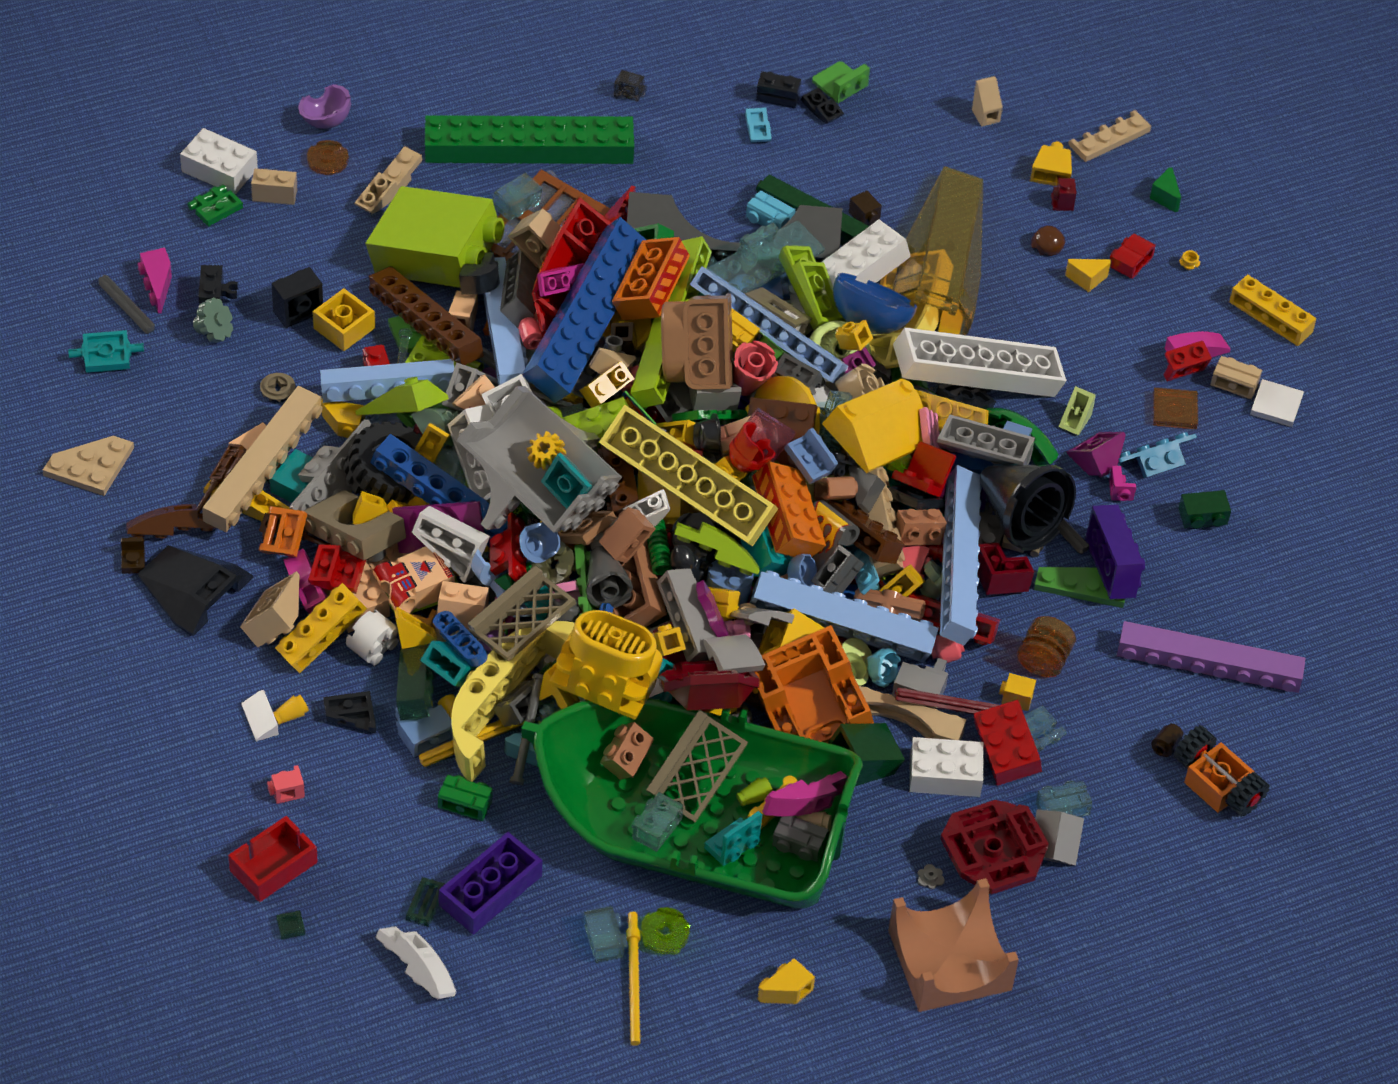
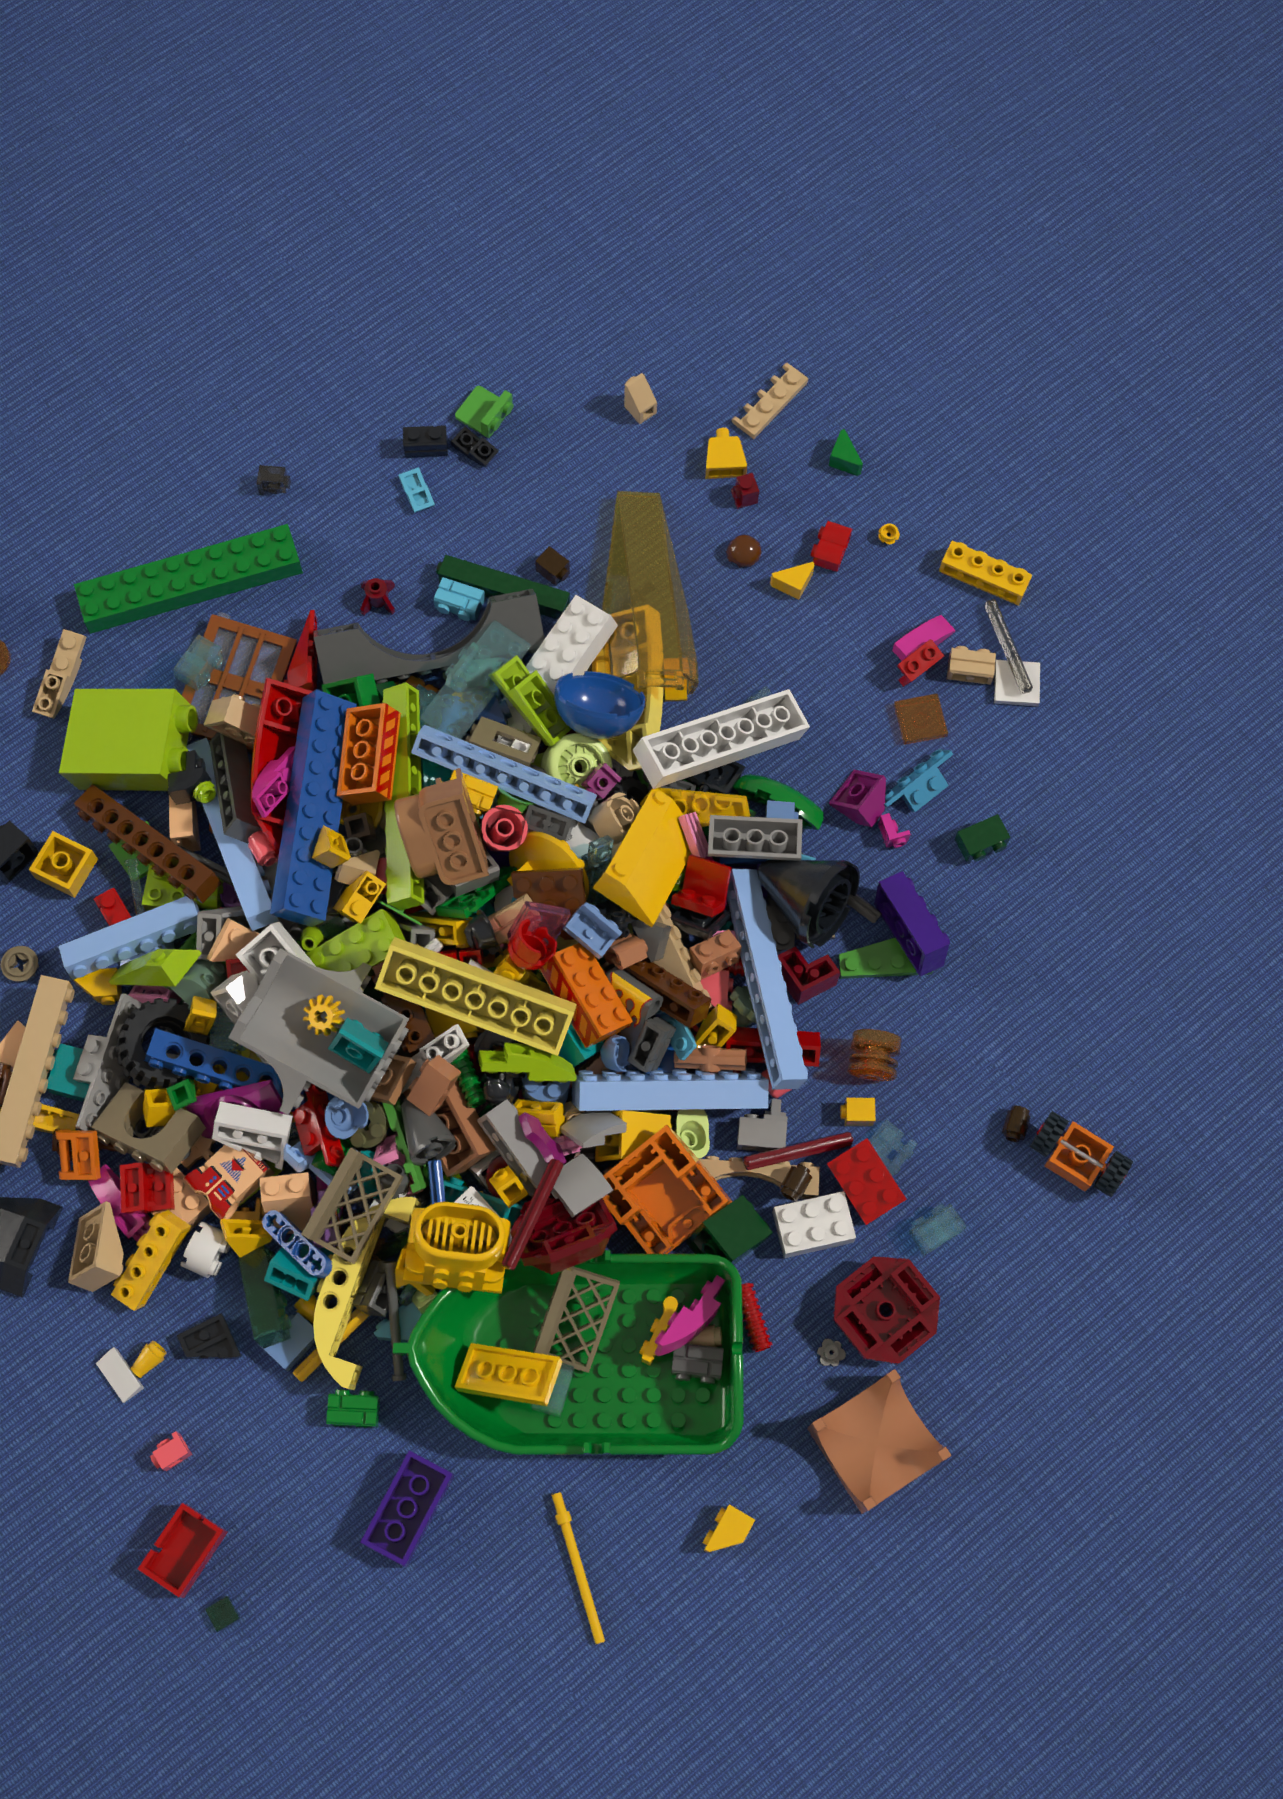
camera: 15 degrees left, 20 degrees up
(394, 499) = (182, 1094): none -> green slope
(419, 917) = (350, 1520): tile -> none
(422, 961) = (364, 1621): white slope -> none
(495, 288) = (205, 792): none -> lime plate
(592, 337) = (331, 848): none -> yellow slope
(604, 933) = (535, 1528): clear light blue brick -> none
(620, 793) = (508, 1374): none -> yellow plate
(626, 750) = (499, 1314): nougat brick -> none
(665, 943) = (582, 1494): clear neon green plate -> none
(684, 655) = (532, 1214): none -> dark red axle
(695, 192) = (377, 595): none -> dark red brick
(735, 839) = (631, 1383): teal bracket -> none
(754, 792) = (638, 1319): lime cone -> none
(854, 335) = (586, 751): yellow brick -> none
(864, 825) = (753, 1320): none -> red piece
(883, 666) = (721, 1127): medium azure hair -> none
(939, 720) = (795, 1182): none -> dark brown brick
(1062, 833) = (944, 1273): light grey slope -> none
(1078, 411) = (828, 756): yellowish green slope -> none
(1211, 657) = (1033, 1011): medium lavender brick -> none
(1277, 371) = (1008, 646): none -> clear smoke axle

